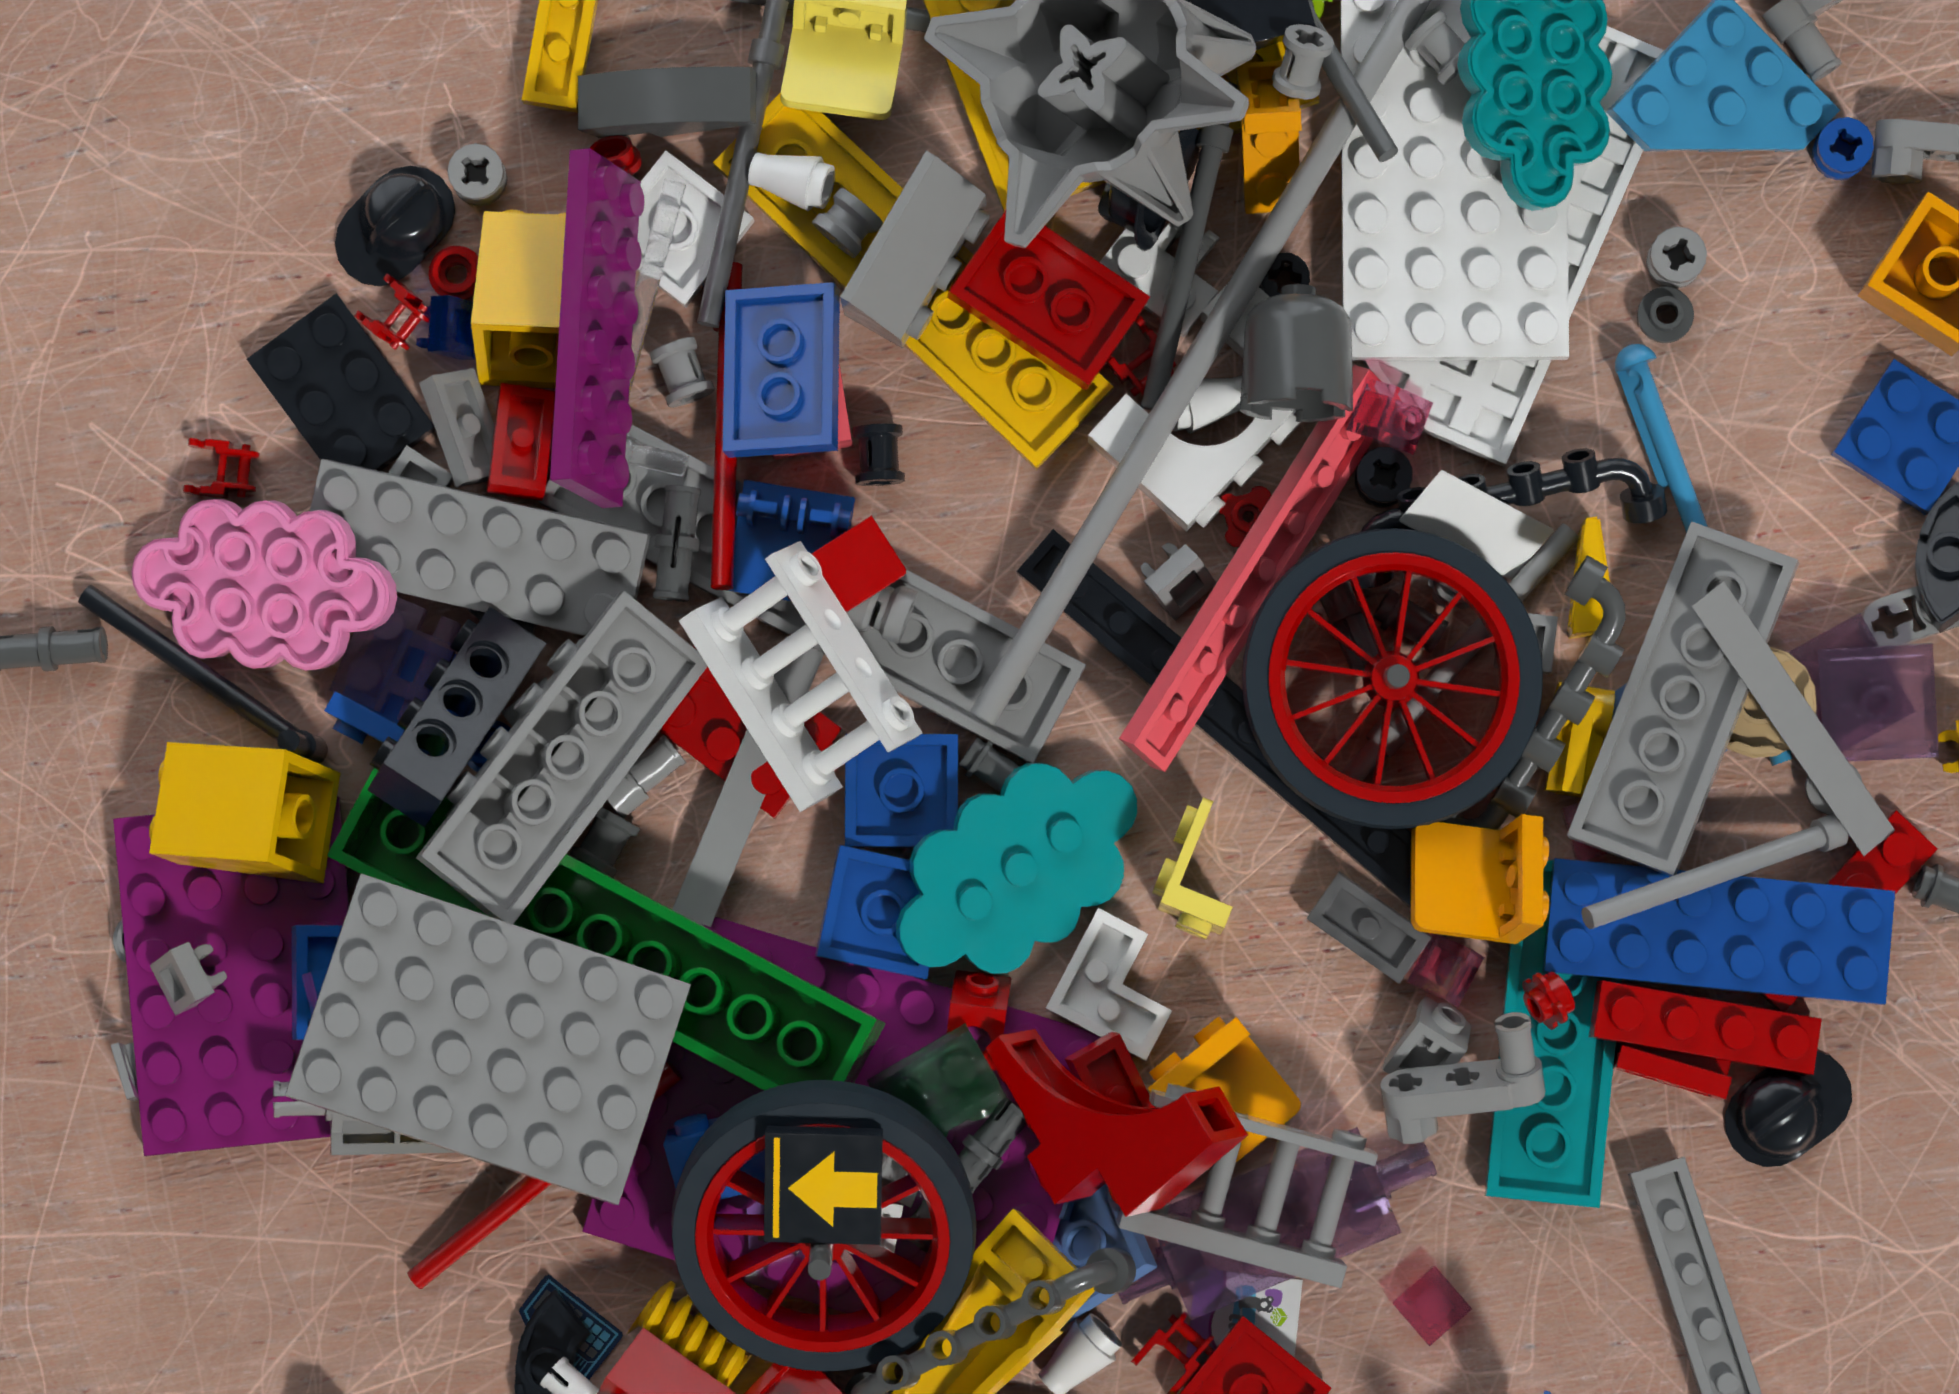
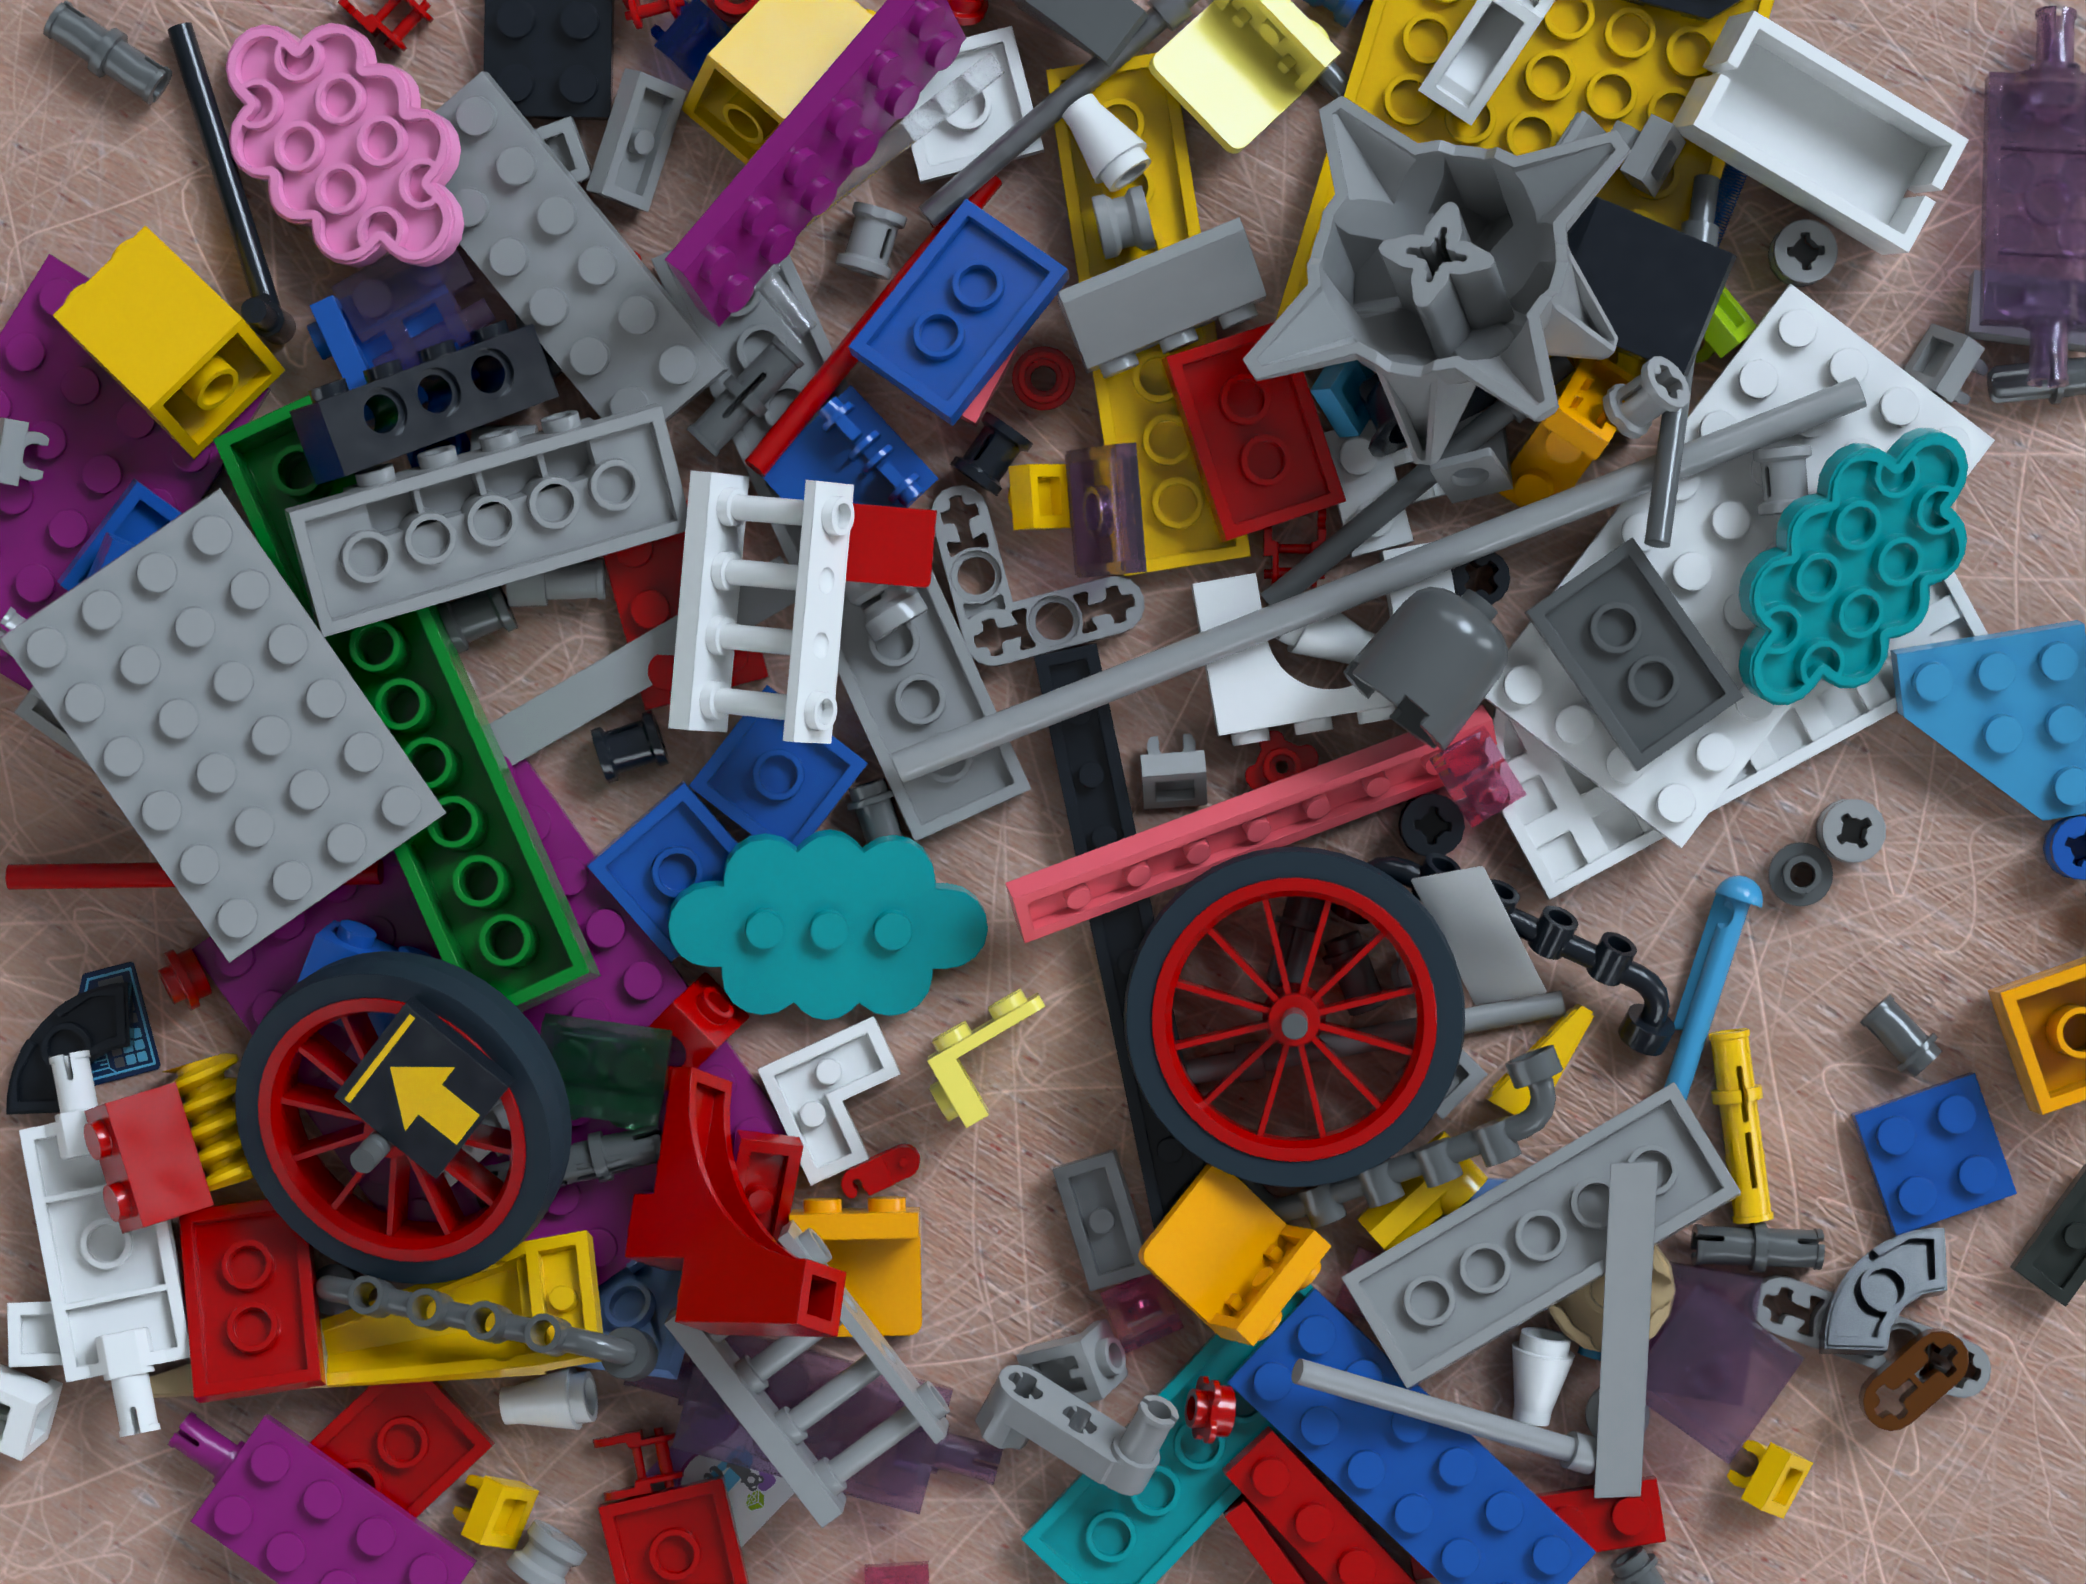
camera: 30 degrees right, 5 degrees up
(521, 442) = (676, 193): red plate -> none
(593, 1255) = (184, 978): none -> red plate
(782, 851) = (630, 746): none -> black bush
(869, 359) = (1037, 358): none -> red plate
(934, 459) = (1039, 497): none -> yellow plate
(962, 554) = (998, 602): none -> light grey beam
(989, 430) = (1105, 510): none -> plate
(1087, 227) = (1339, 397): none -> dark azure plate
(1187, 1011) = (882, 1170): none -> red piece
(1223, 208) = (1477, 471): none -> light grey bracket
(1431, 245) = (1634, 654): none -> dark grey plate
(1757, 799) = (1539, 1371): none -> white cone
(1759, 517) = (1741, 1123): none -> yellow pin
(1823, 372) = (1901, 1036): none -> dark grey pin
(1839, 594) = (1757, 1247): none -> dark grey pin

